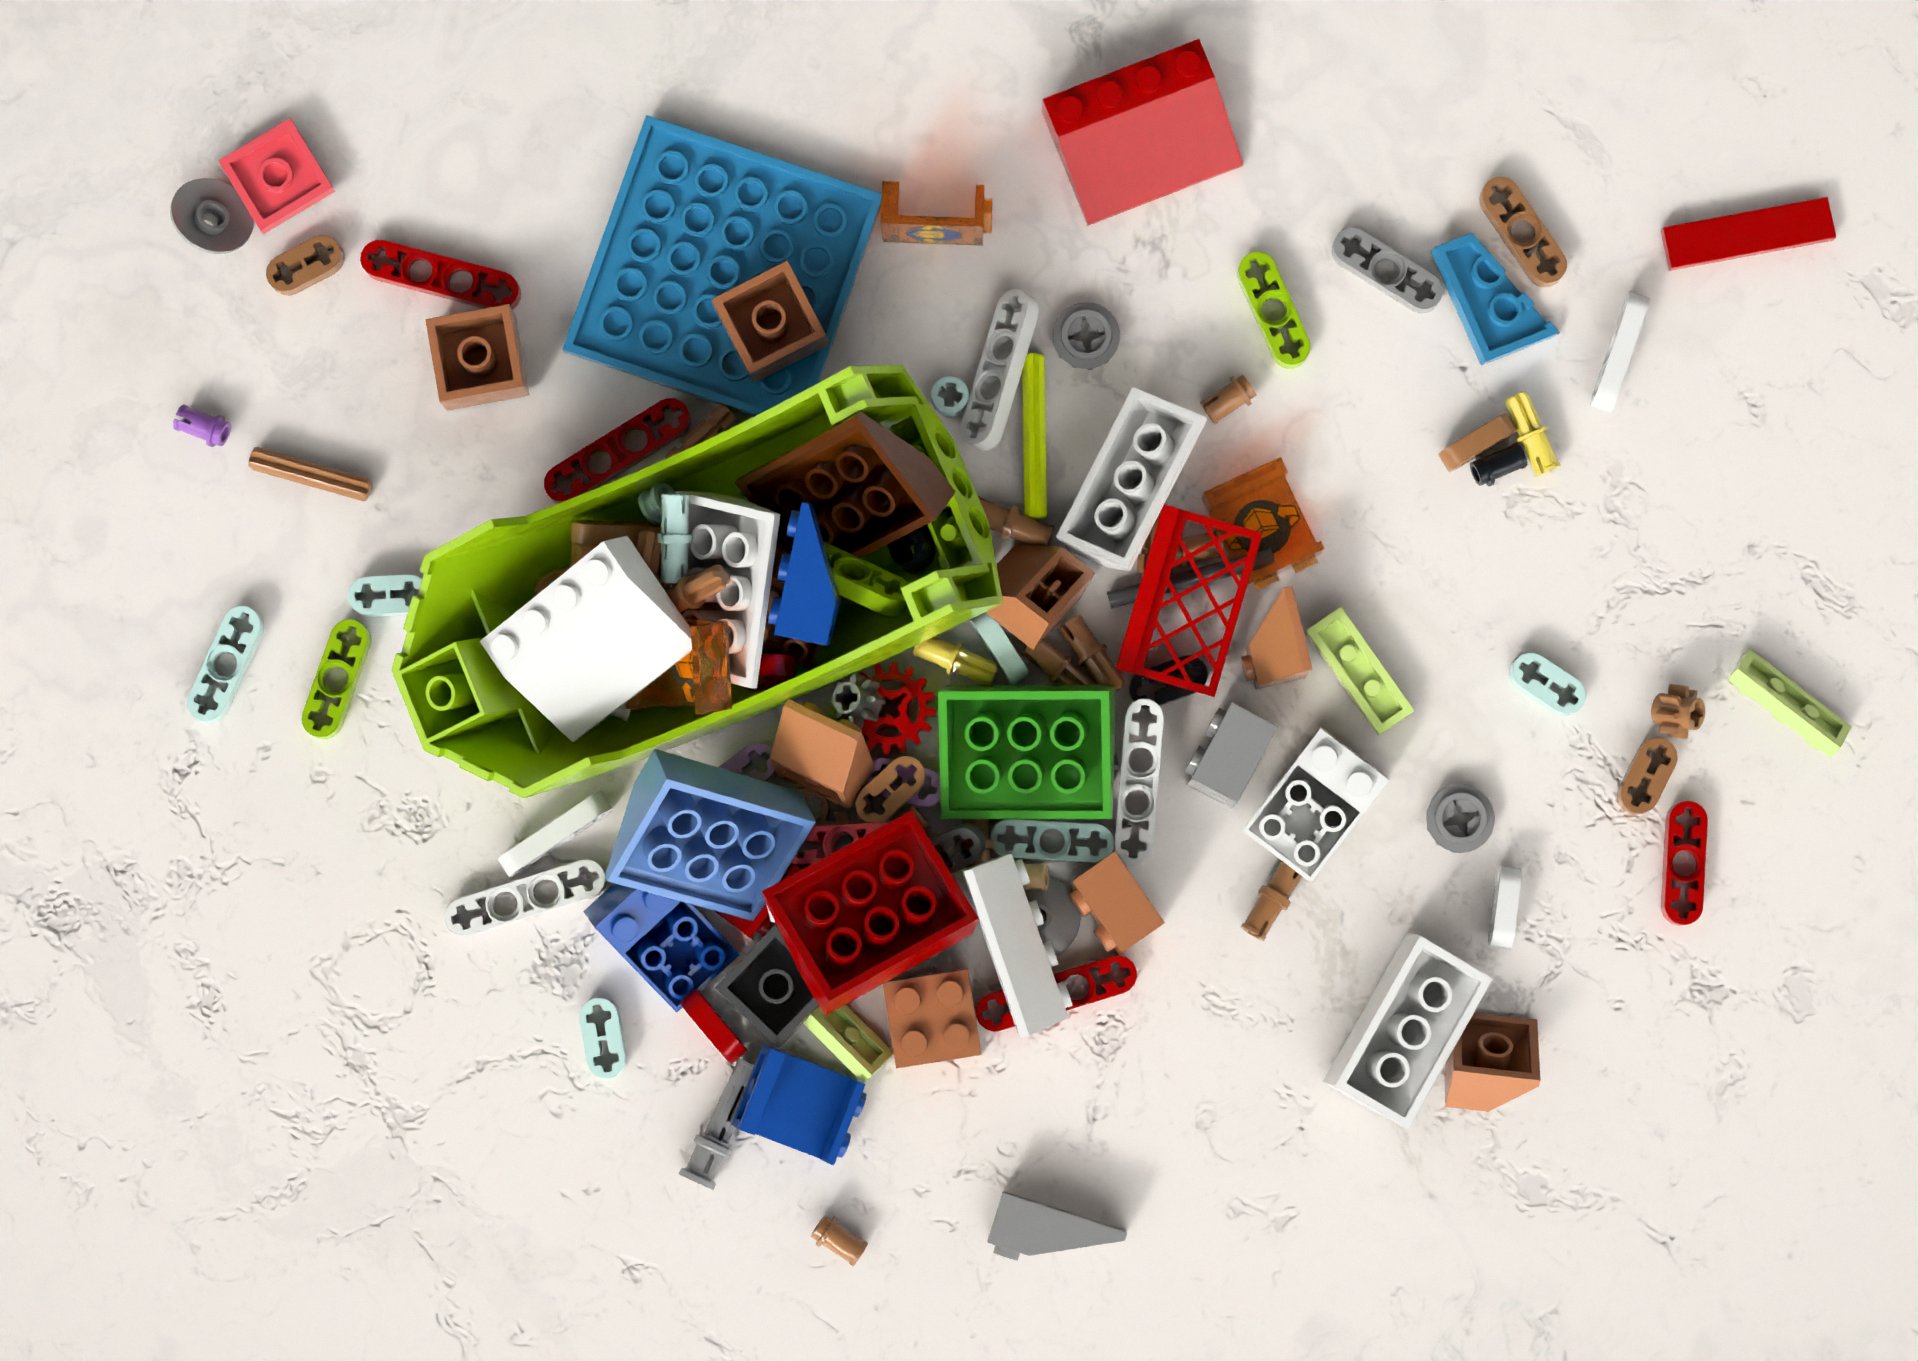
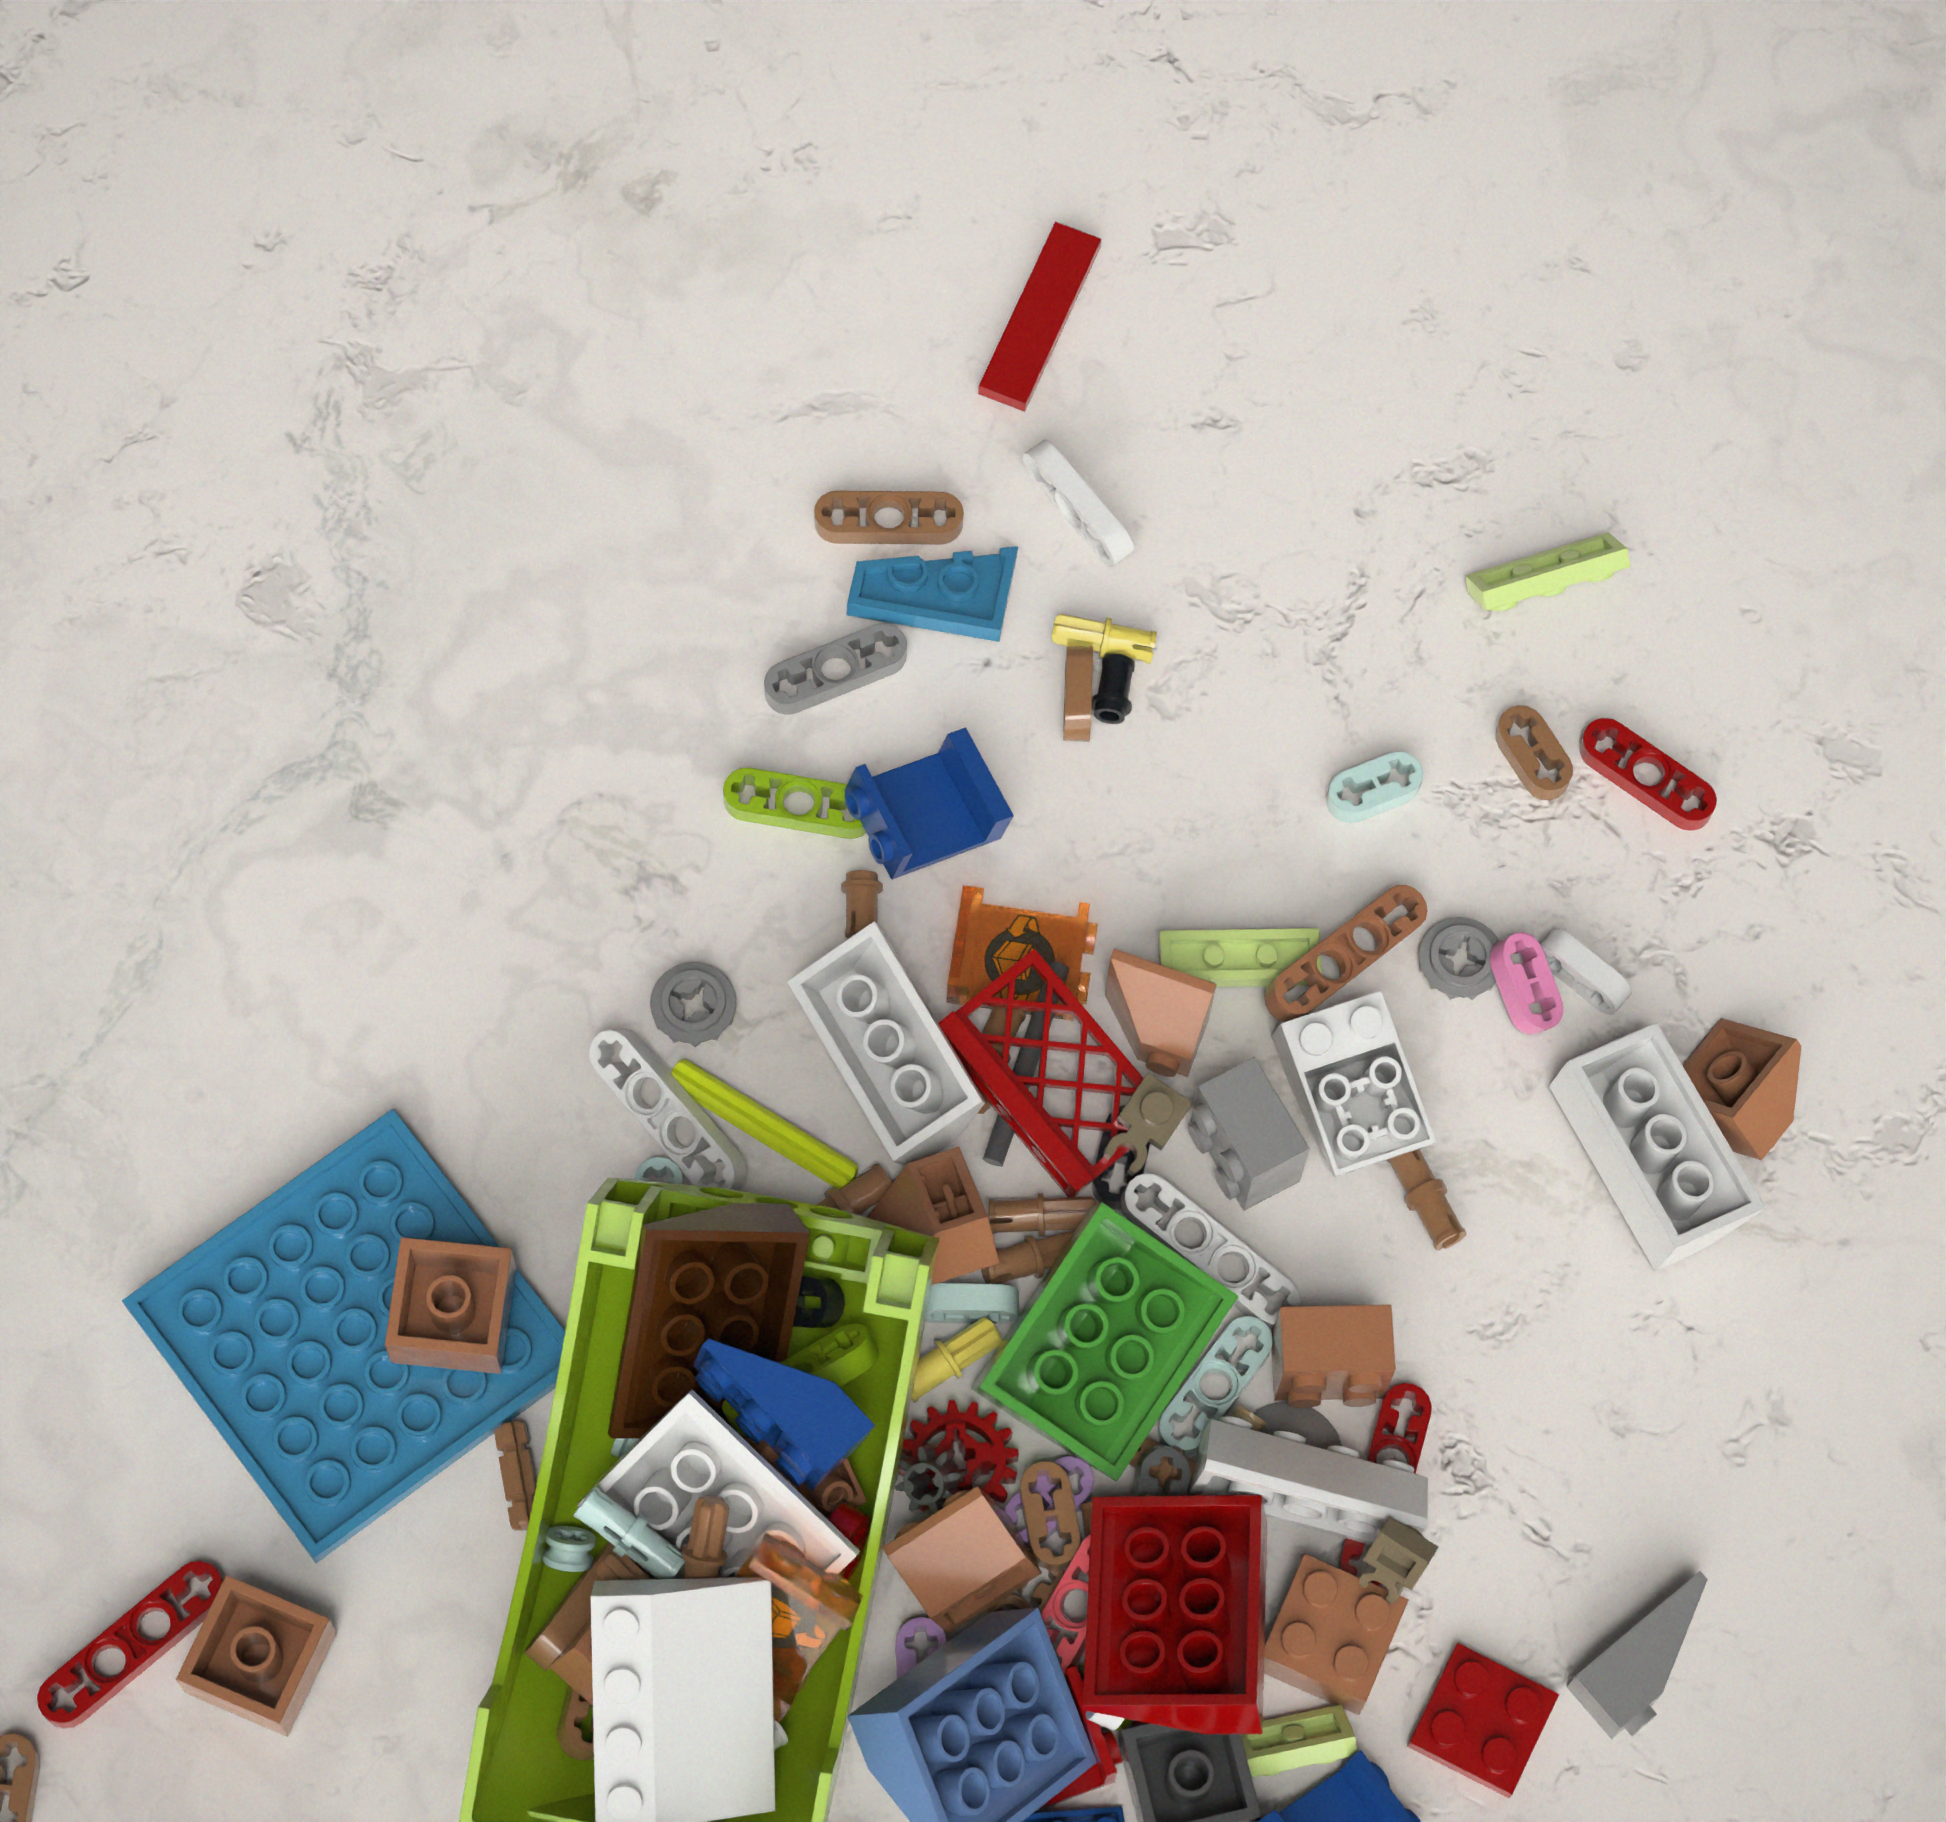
camera: 65 degrees left, 15 degrees down
(614, 445) = (472, 1576): red beam -> none
(931, 229) = (441, 1112): clear orange panel -> none
(943, 1150) = (1483, 1720): none -> red plate
(993, 1032) = (1397, 1558): none -> dark tan plate
(1142, 132) = (517, 810): slope -> none
(1201, 684) = (1150, 1117): none -> dark tan plate
(1324, 396) = (929, 807): none -> blue panel
(1408, 736) = (1346, 953): none -> nougat beam
(1469, 873) = (1526, 983): none -> bright pink beam
(1678, 711) = (1487, 678): medium nougat gear -> none

